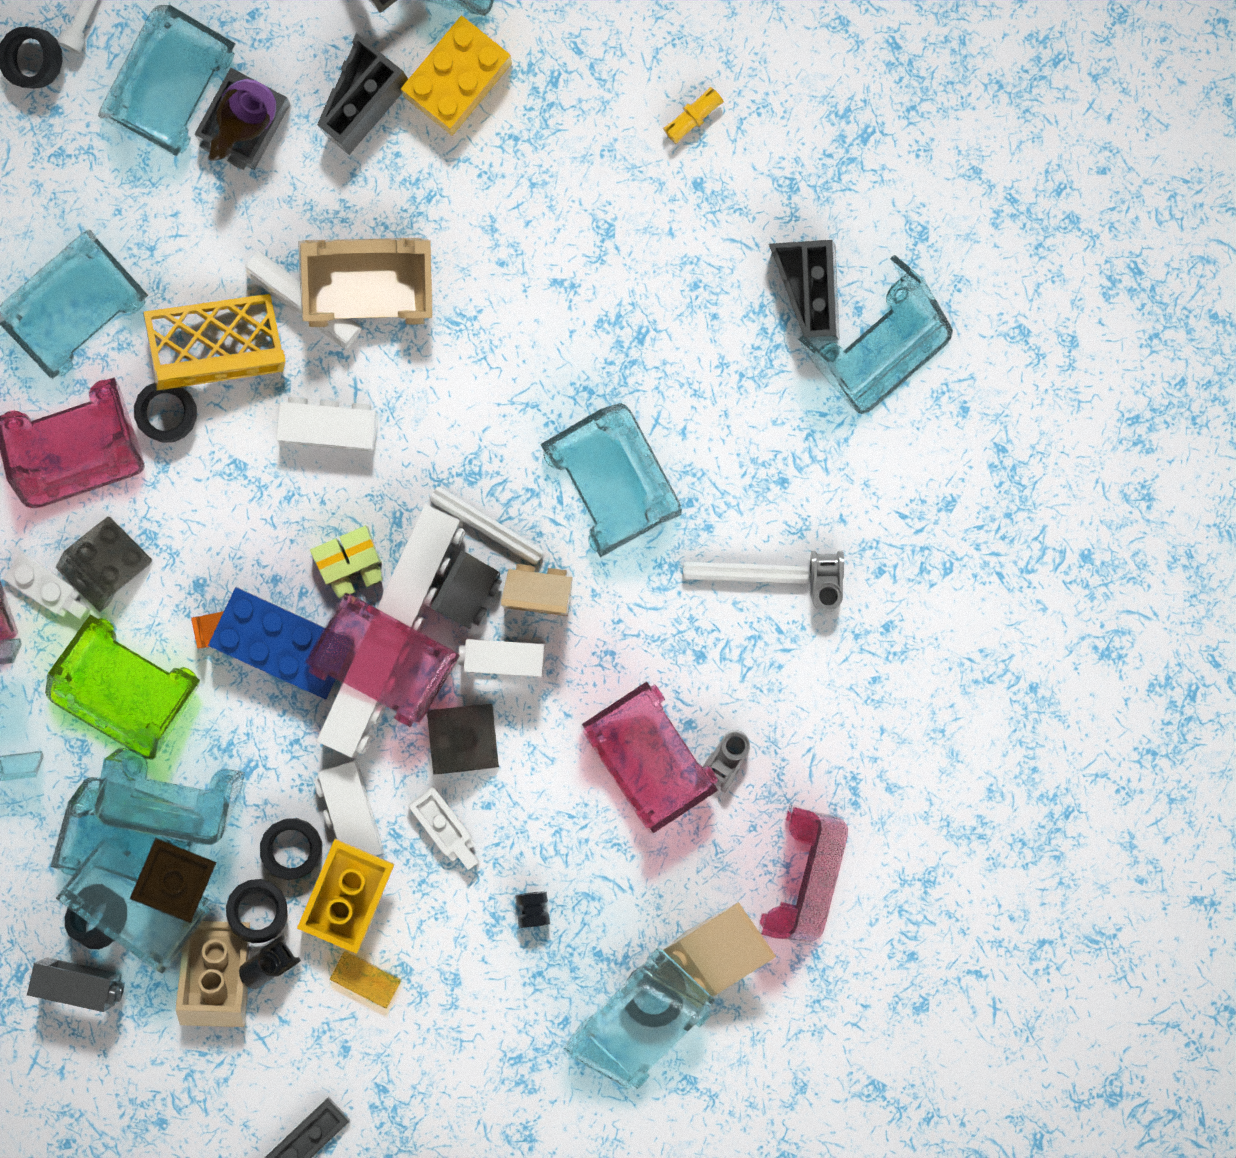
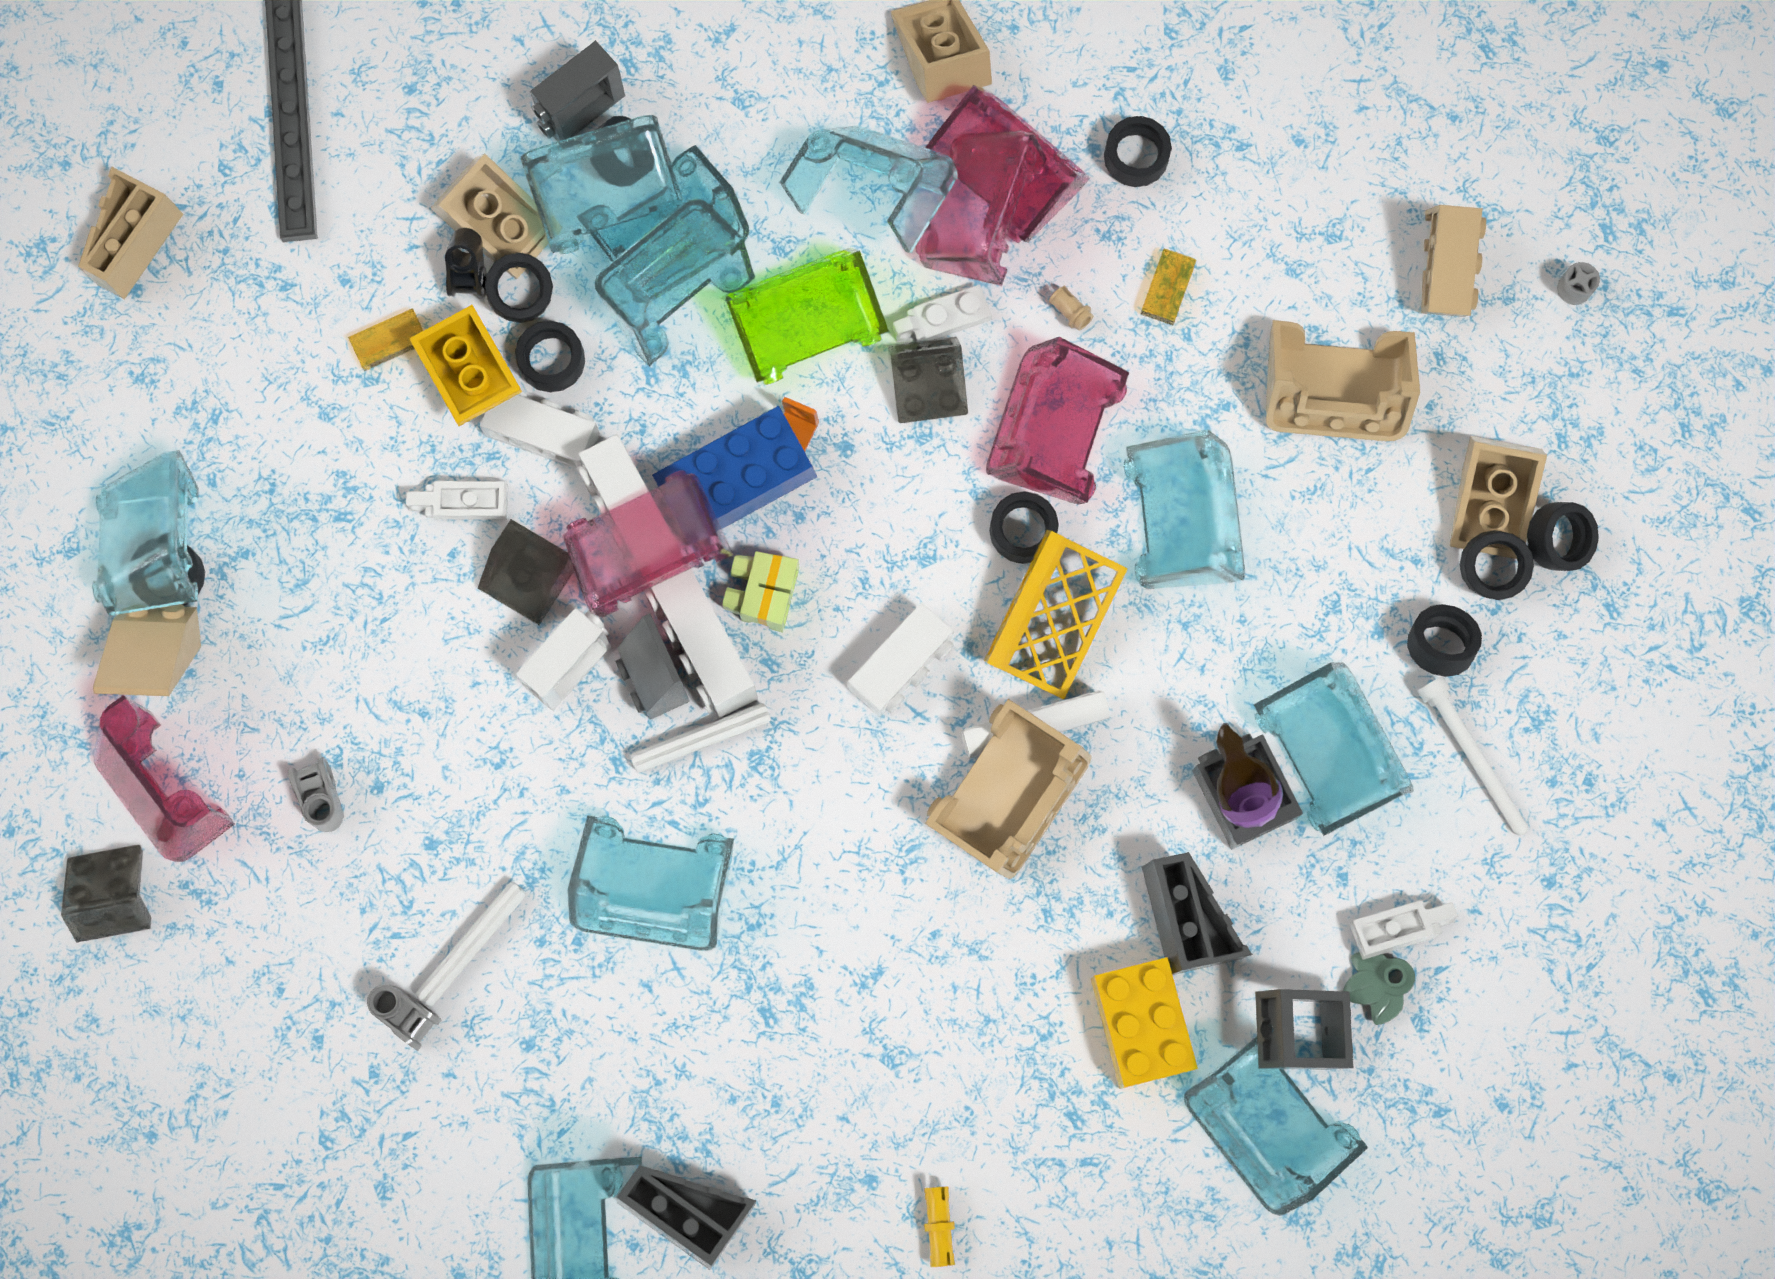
camera: 125 degrees right, 10 degrees down
(172, 880) = (593, 225): dark brown tile -> none
(532, 909) = (330, 524): black wheel -> none
(537, 591) = (598, 731): tan slope -> none
(648, 758) = (368, 721): clear pink windscreen -> none
(901, 851) = (104, 894): none -> clear smoke bracket

